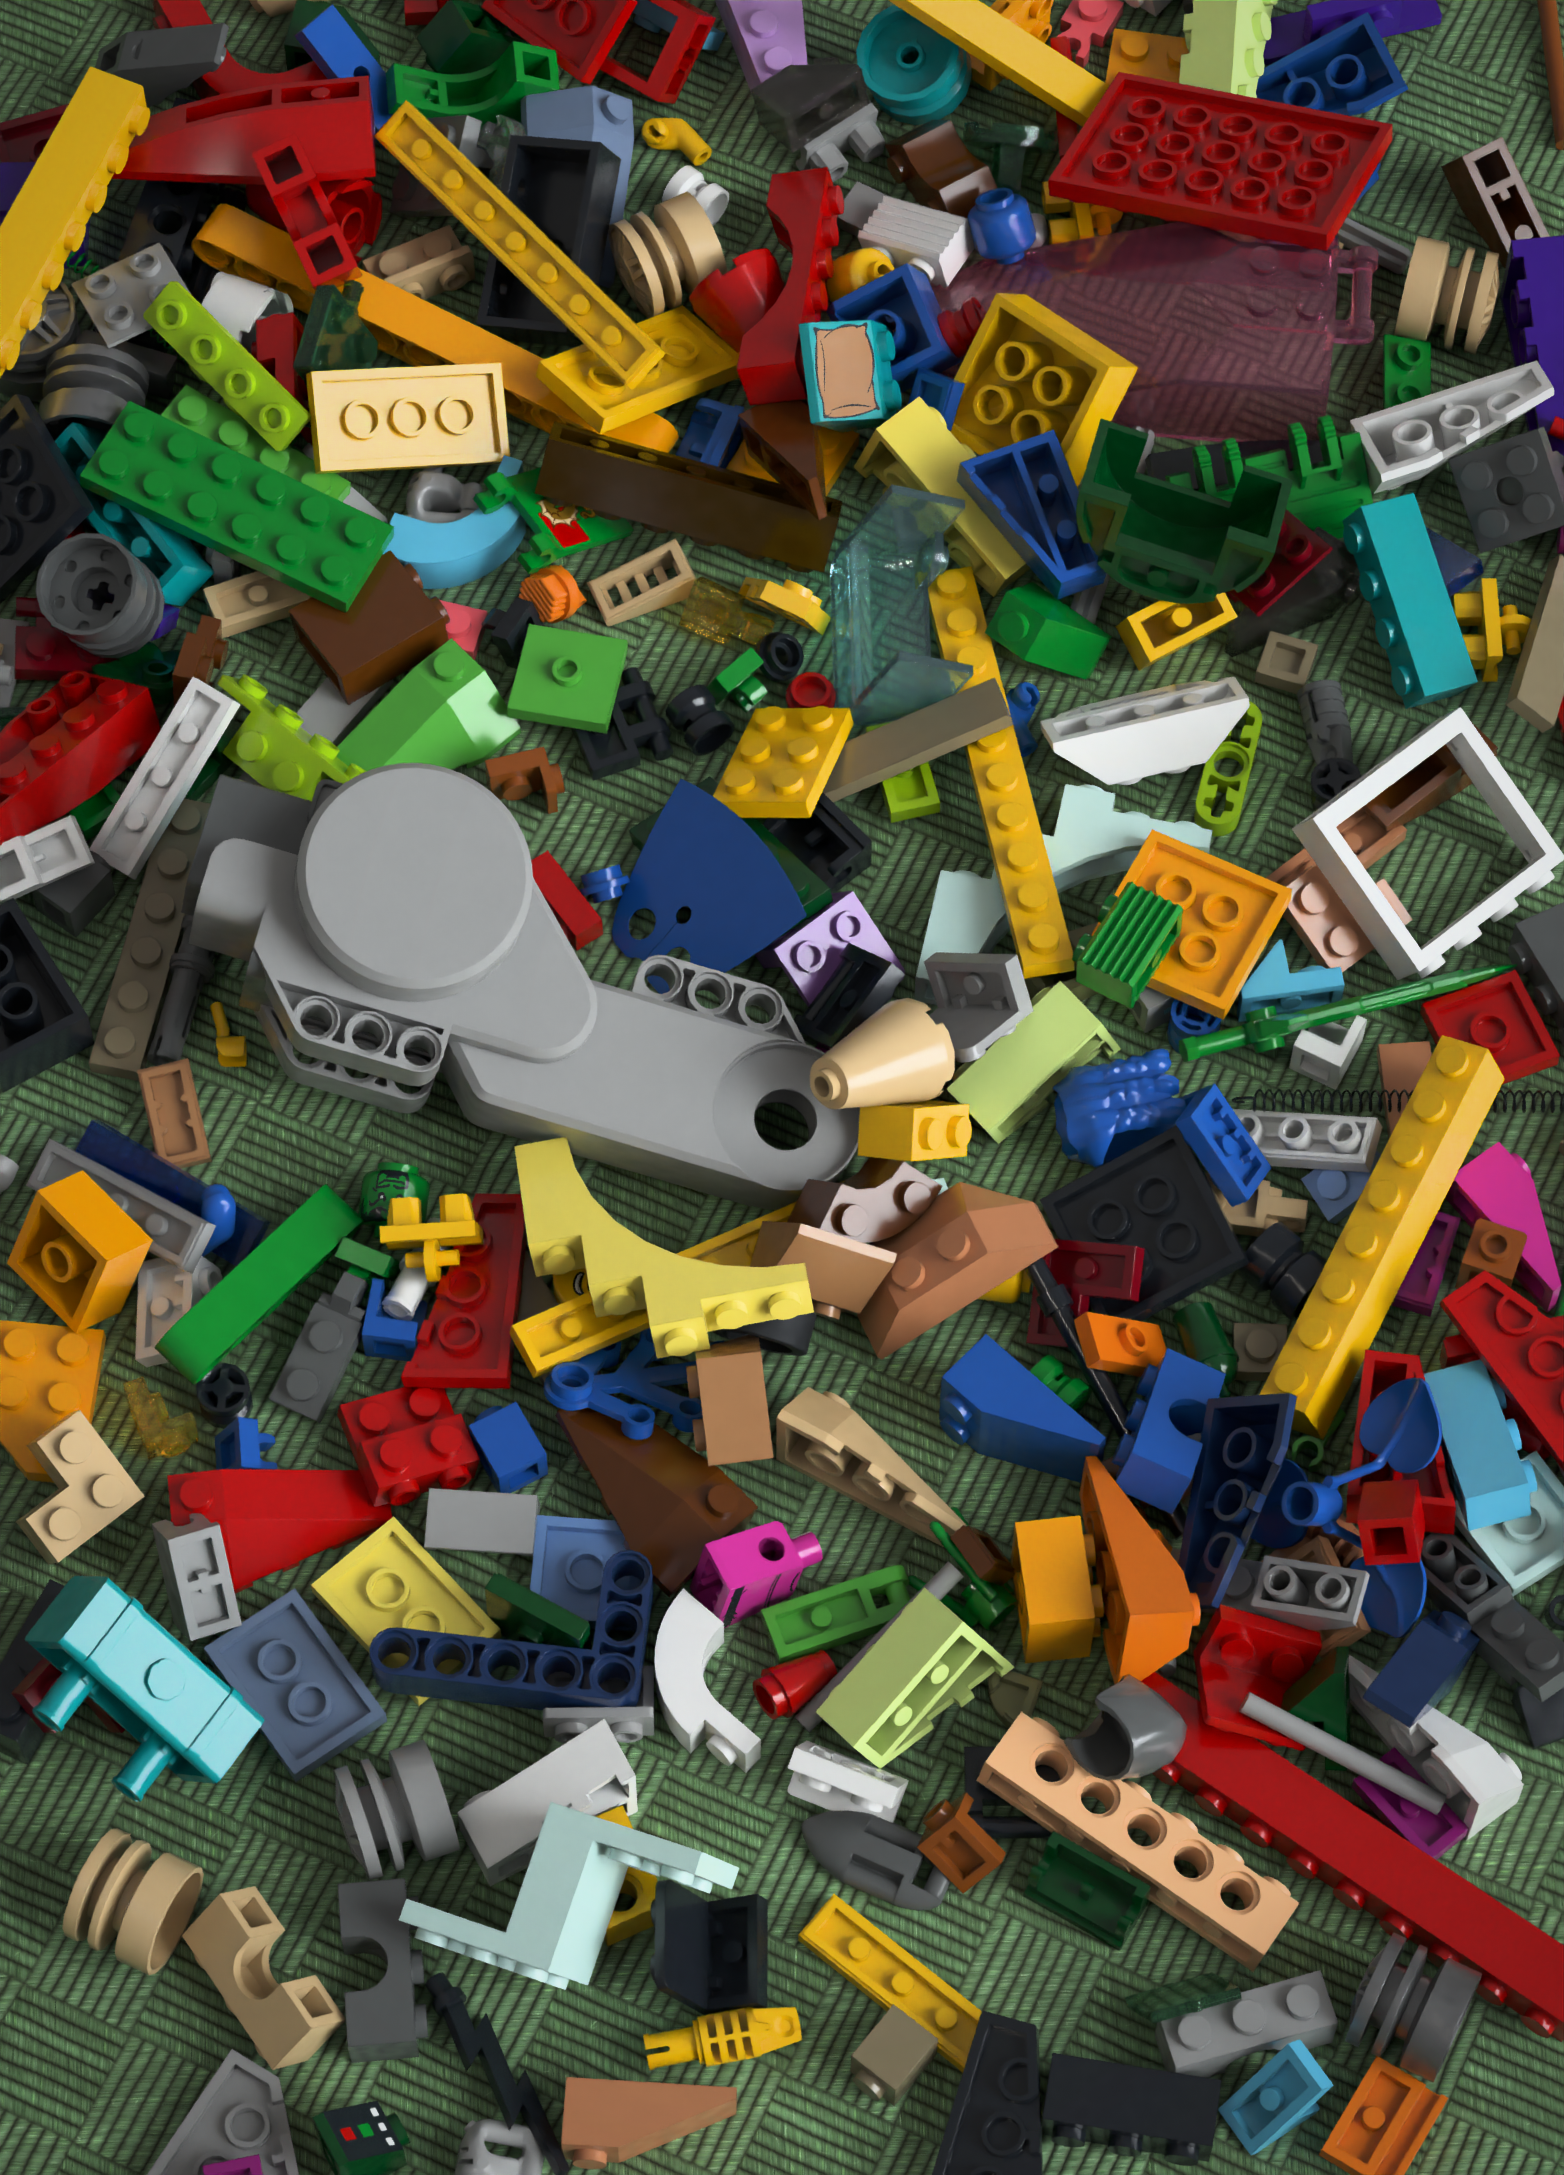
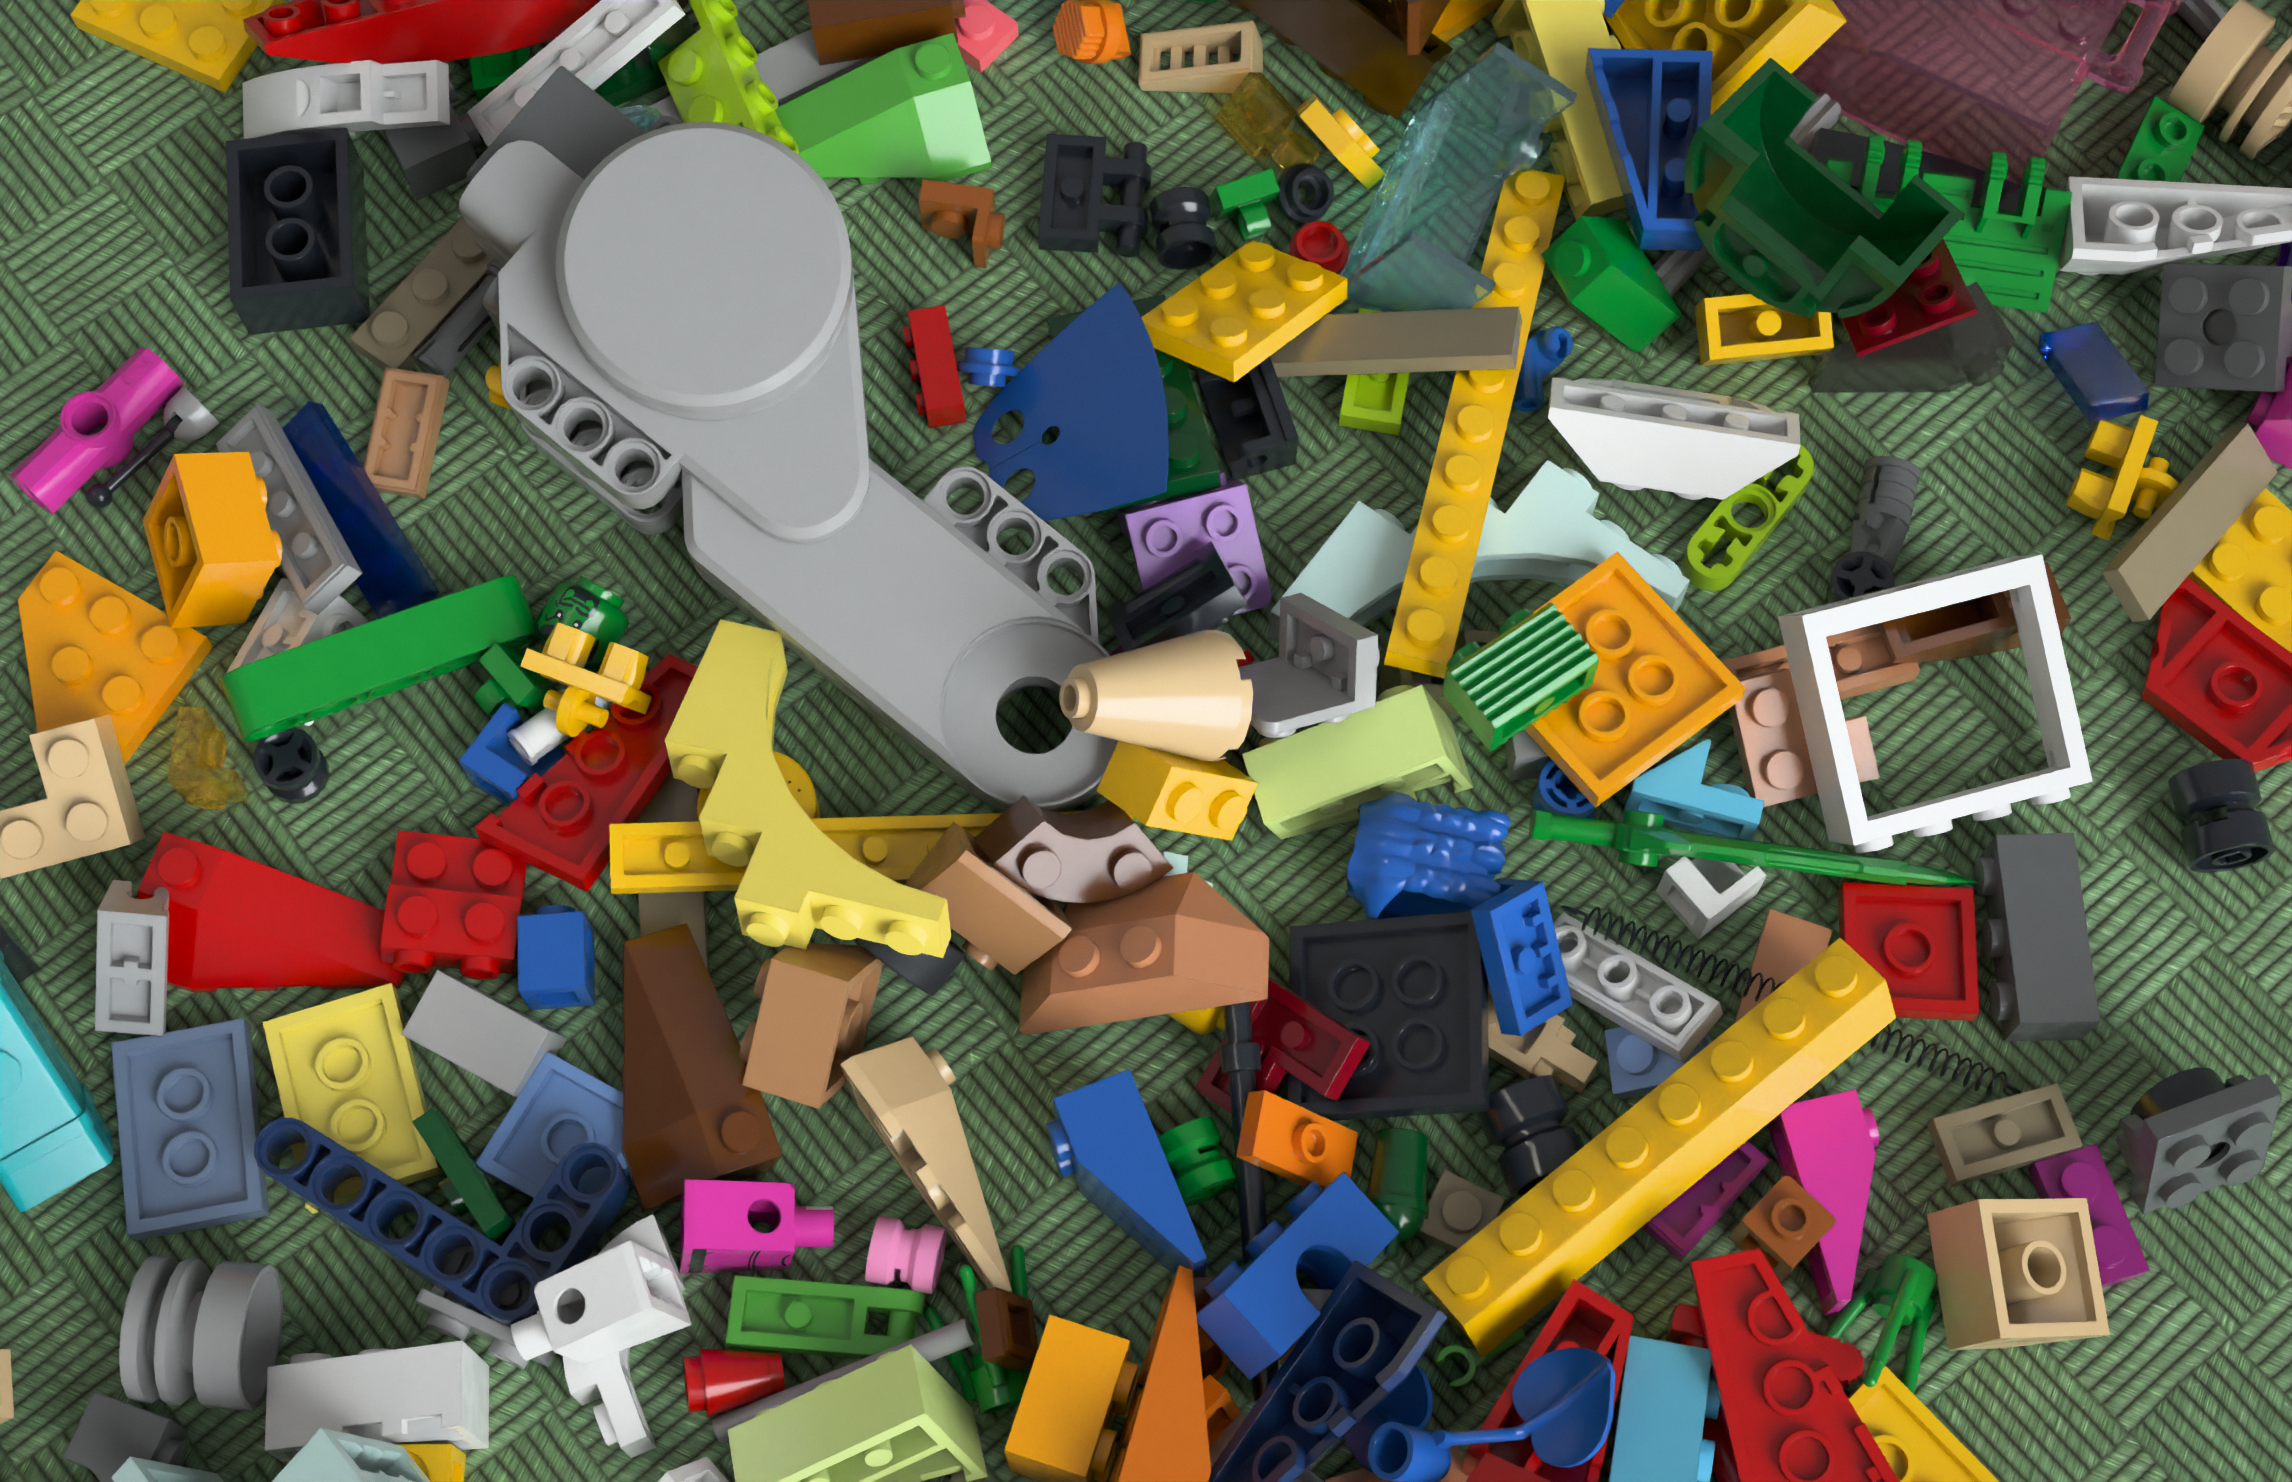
camera: 25 degrees right, 5 degrees up
(219, 1209) = (379, 563): blue arm -> none
(241, 1444) = (271, 833): blue tile -> none
(323, 1350) = (417, 760): dark grey hinge -> none
(511, 628) = (1035, 57): black tile -> none
(567, 678) = (1059, 126): bright green plate -> none
(578, 1386) = (719, 941): blue plant -> none
(702, 1638) = (603, 1306): none -> white torso
(877, 1543) = (906, 1254): none -> bright pink wheel
(1286, 662) = (1870, 422): dark tan plate -> none
(1408, 601) = (2042, 406): teal brick -> none

